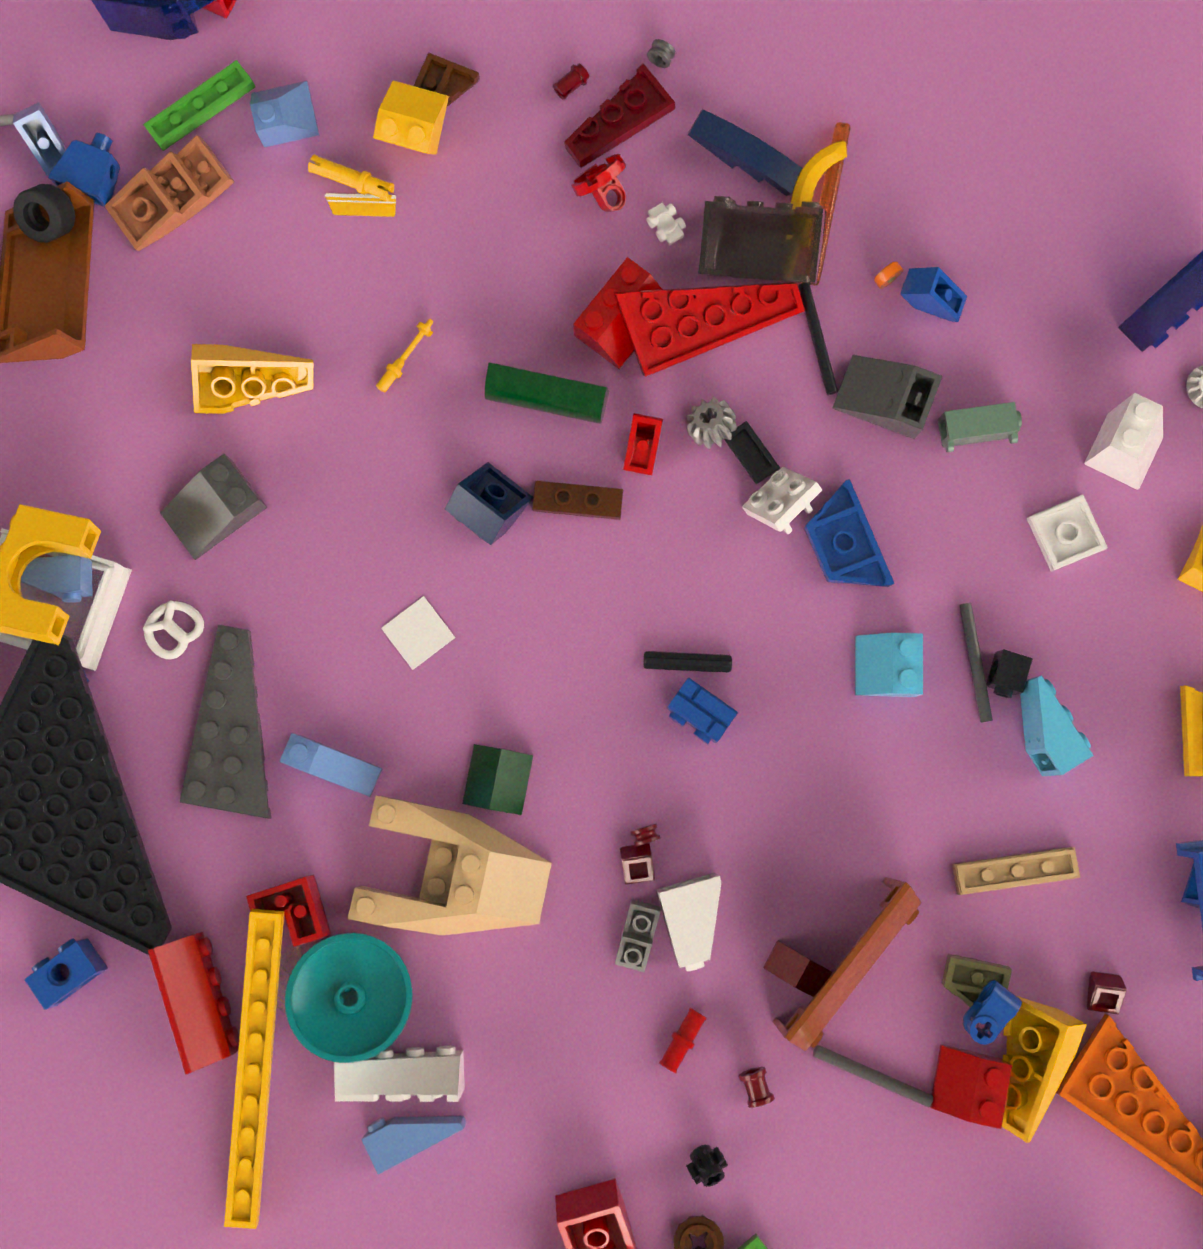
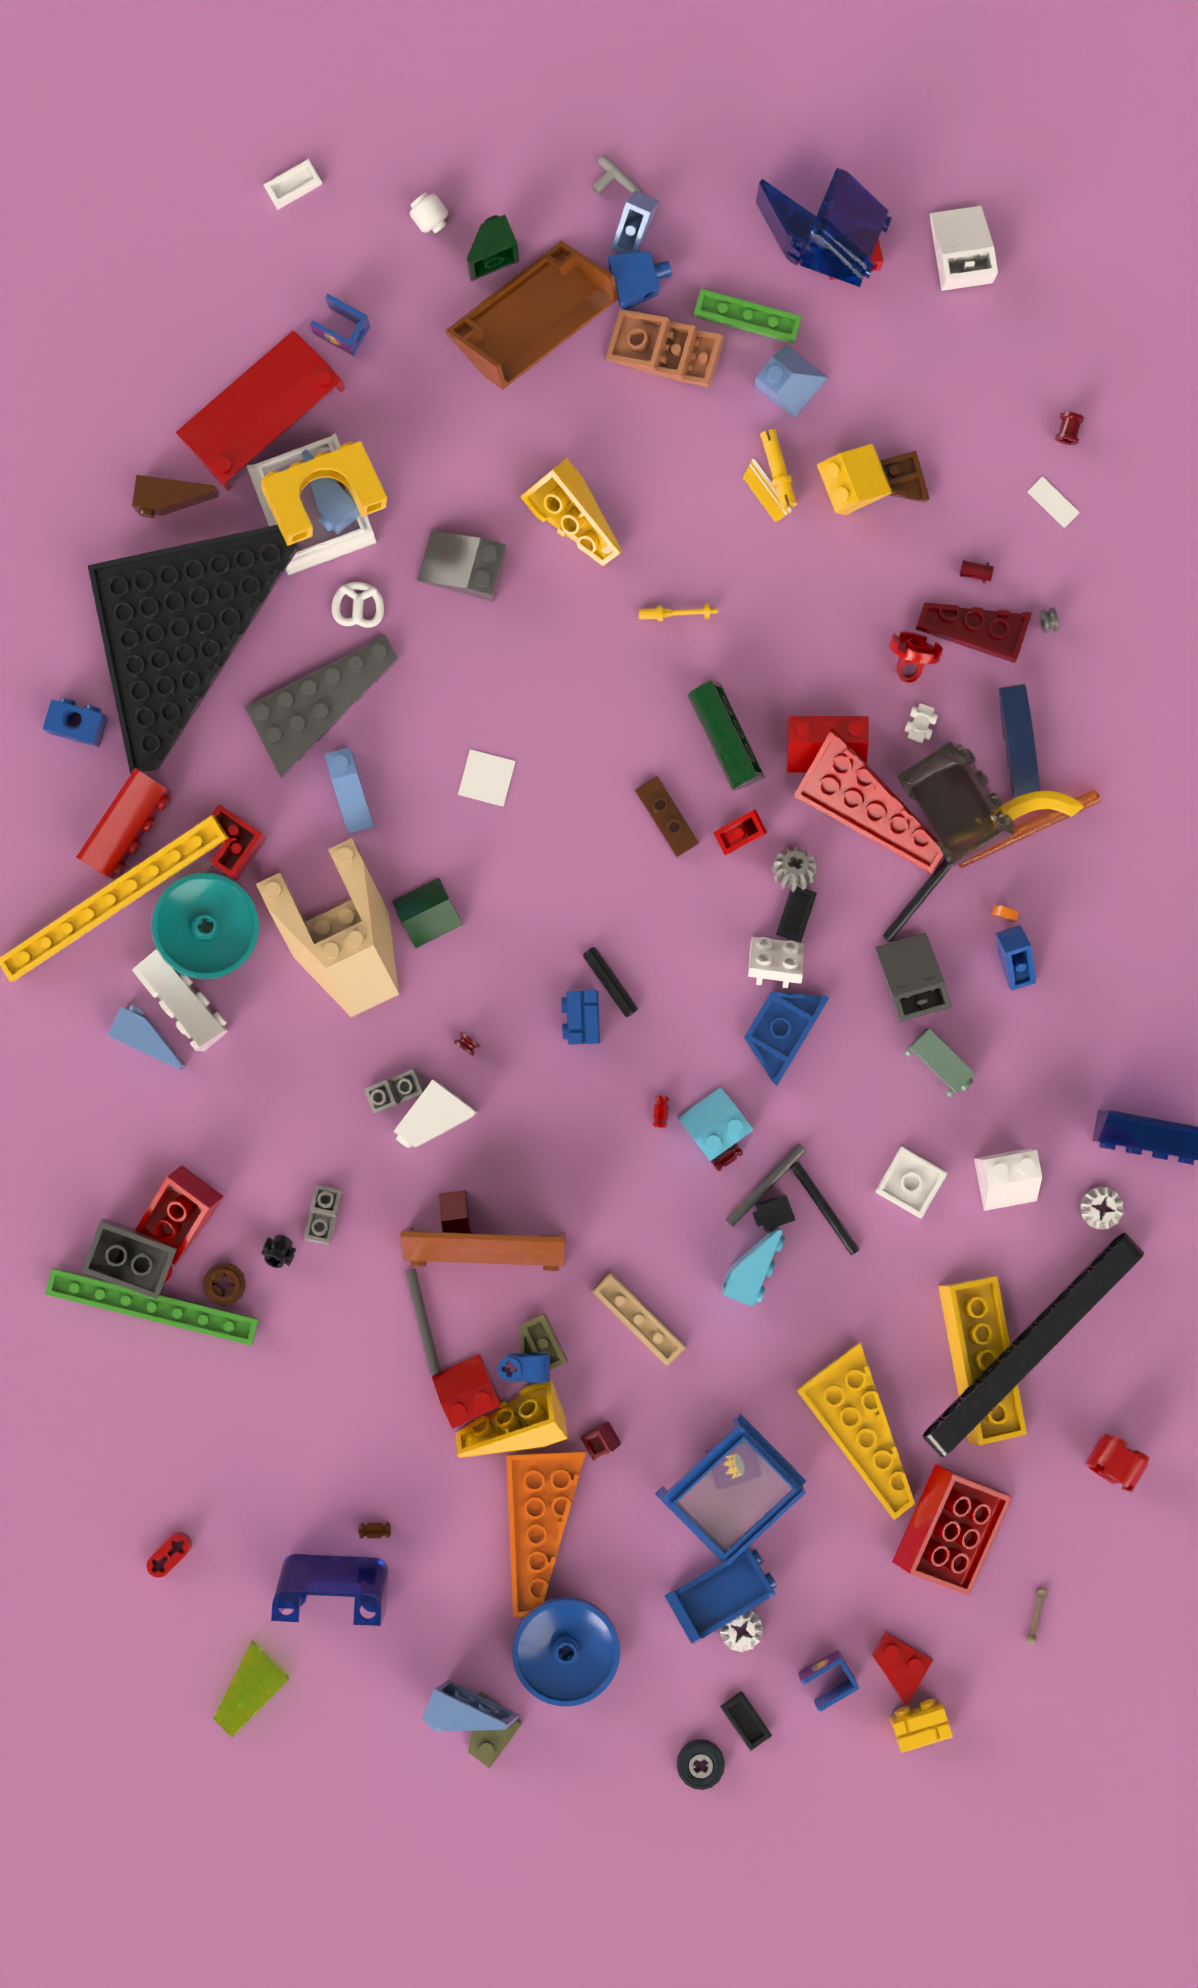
camera: 55 degrees right, 5 degrees up
(32, 222) = (591, 277): black tyre -> none
(488, 503) = (615, 755): dark blue slope -> none
(637, 863) = (443, 1053): dark red slope -> none
(682, 1040) = (348, 1174): red pin -> none
(703, 1094) = (322, 1215): none -> light grey slope
(756, 1087) = (355, 1247): dark red bush -> none
(839, 705) = (661, 1111): none -> red piece
(928, 678) = (727, 1157): none -> dark red piece
(1036, 626) = (825, 1209): none -> black bar

